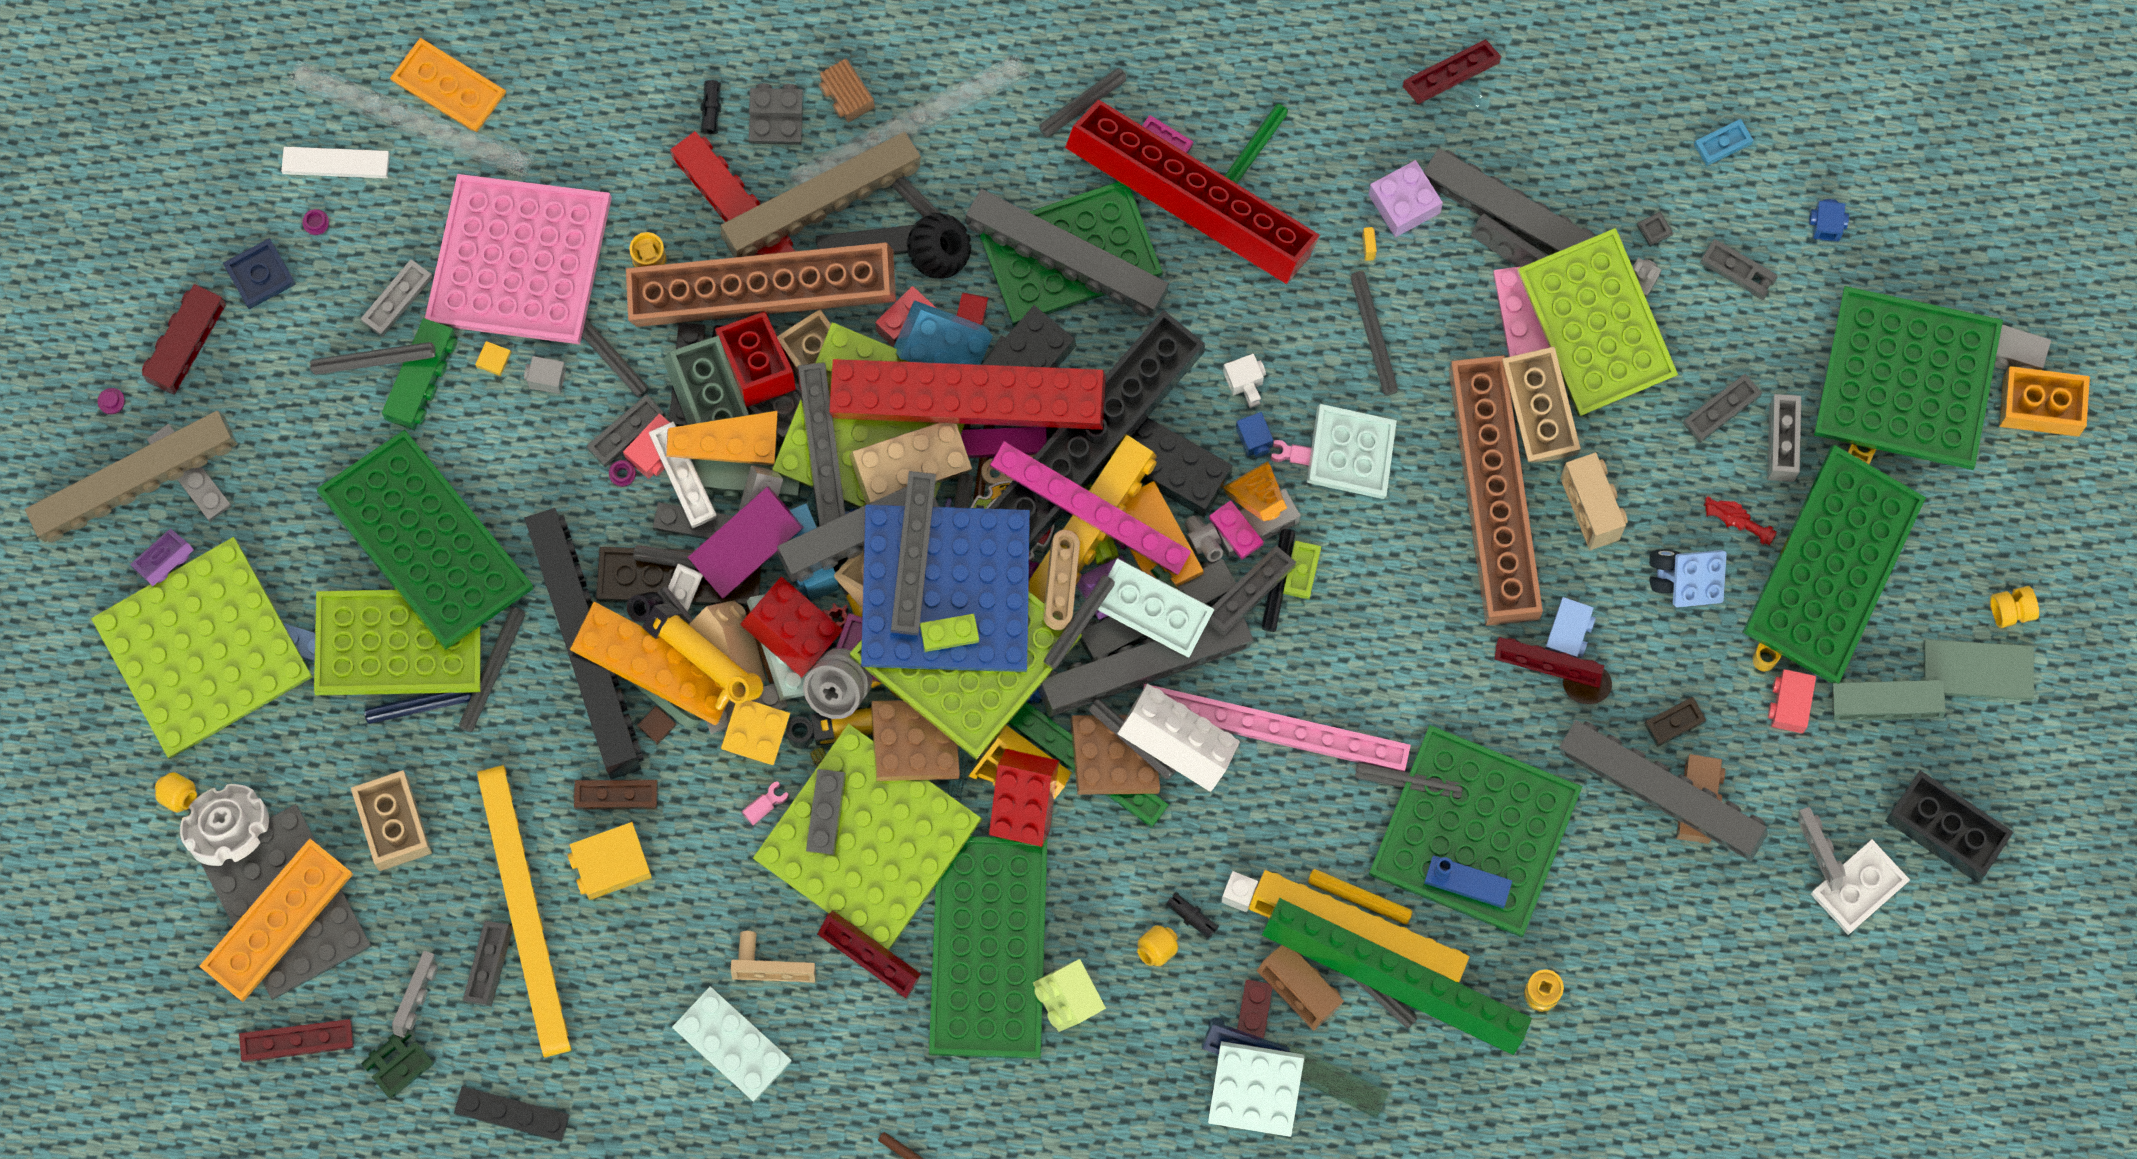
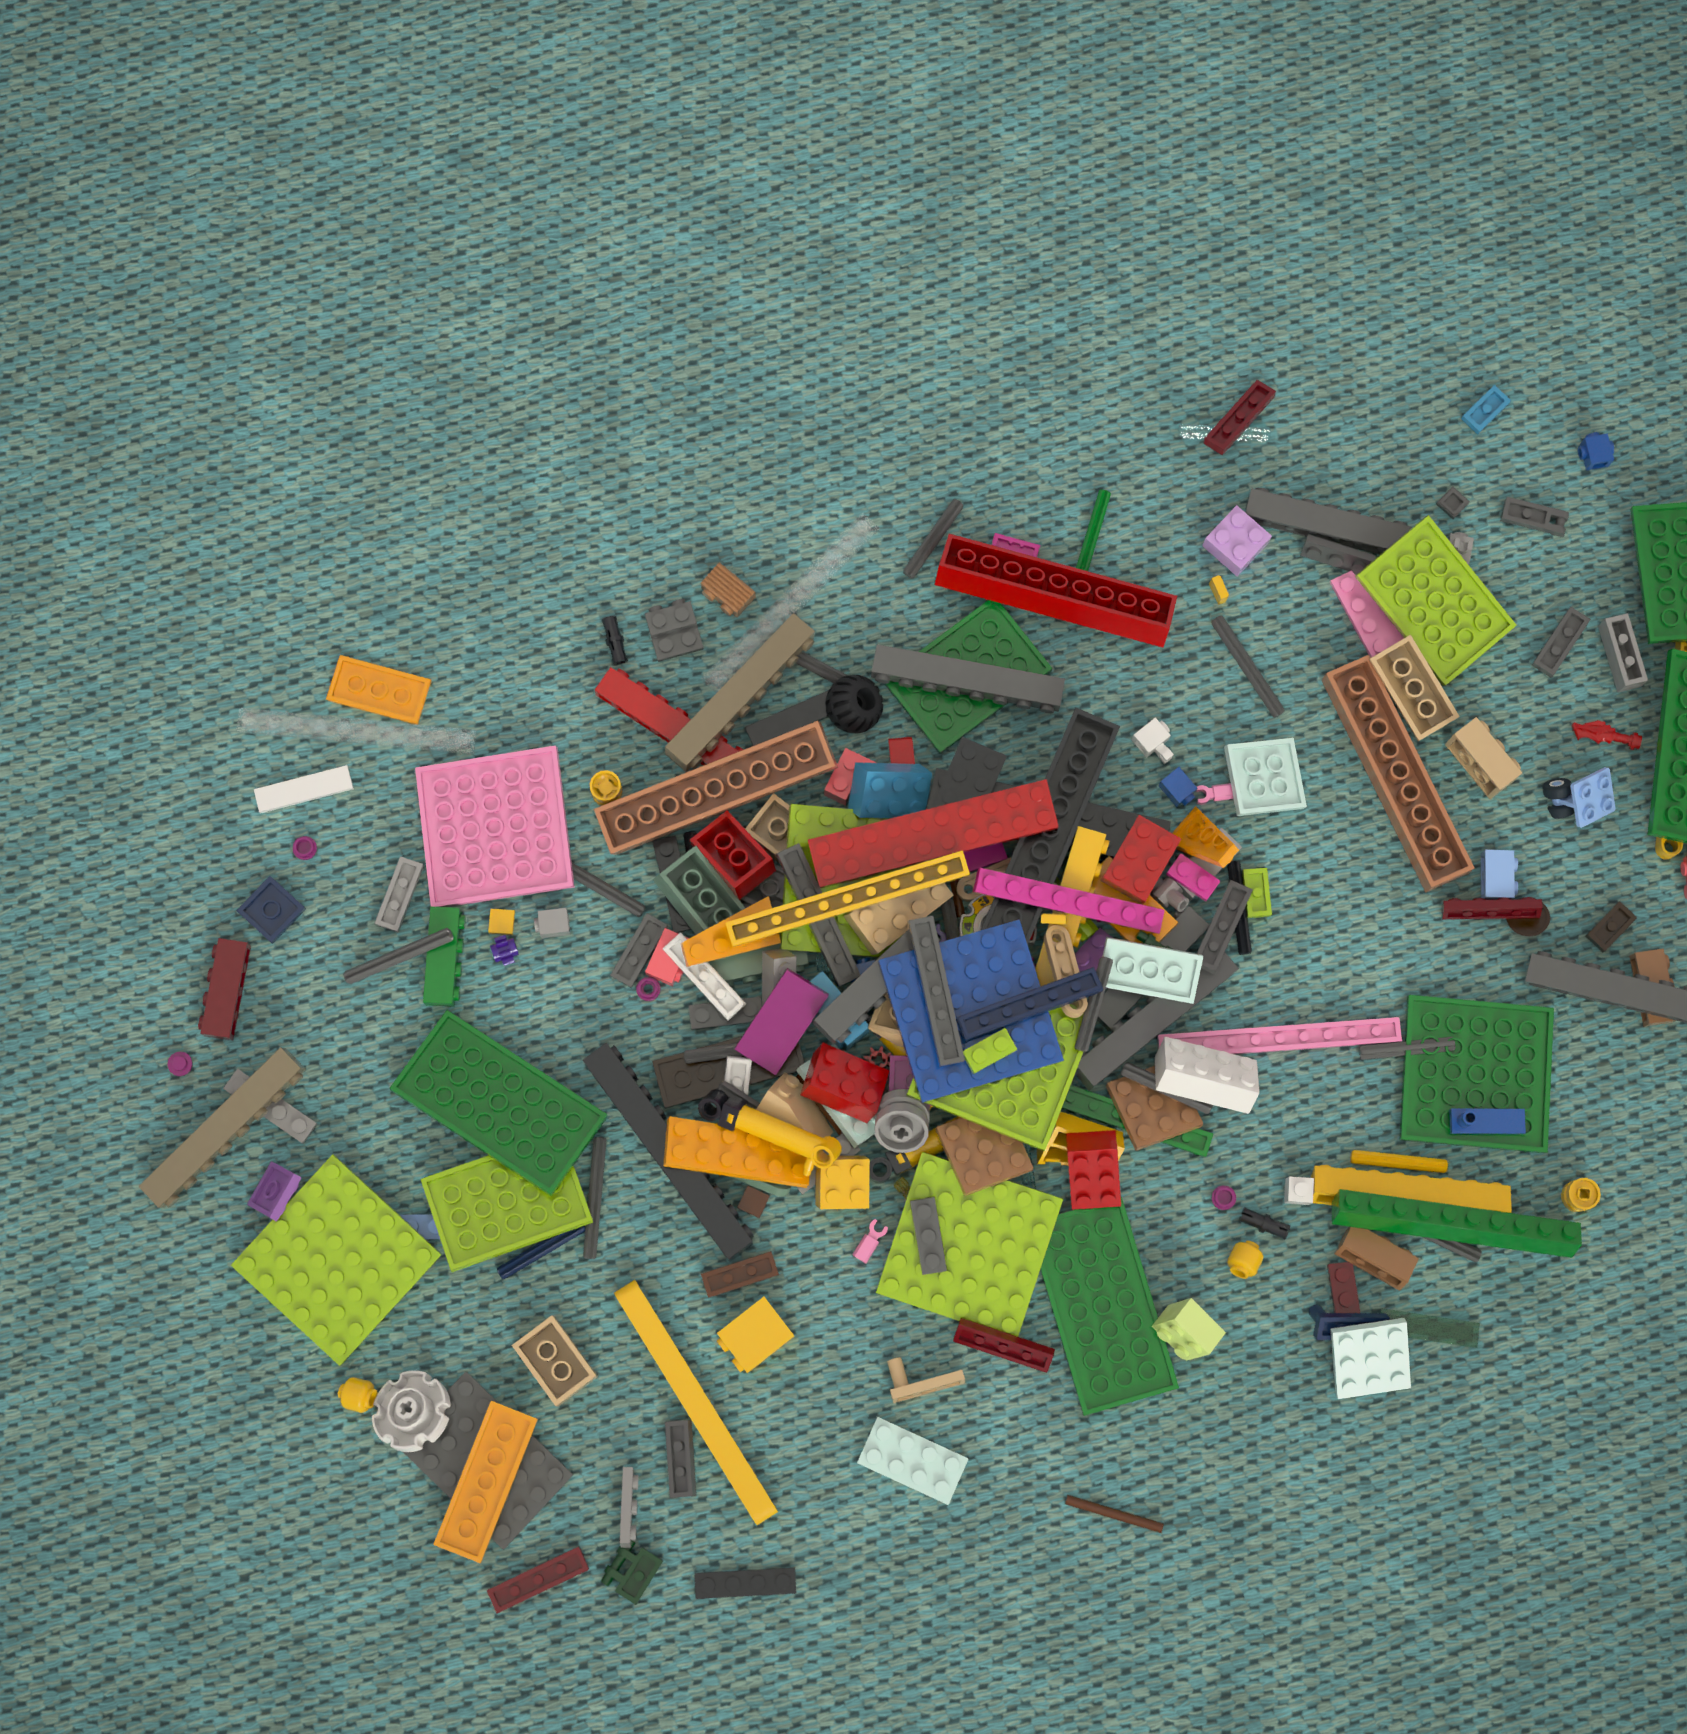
camera: 20 degrees left, 5 degrees up
(485, 387) = (504, 950): none -> dark purple gear
(854, 432) = (847, 898): none -> yellow brick
(1008, 598) = (1029, 1004): none -> dark blue tile
(1068, 523) = (1053, 918): none -> yellow tile
(1157, 875) = (1223, 1197): none -> magenta plate
(1183, 491) = (1141, 859): none -> red brick

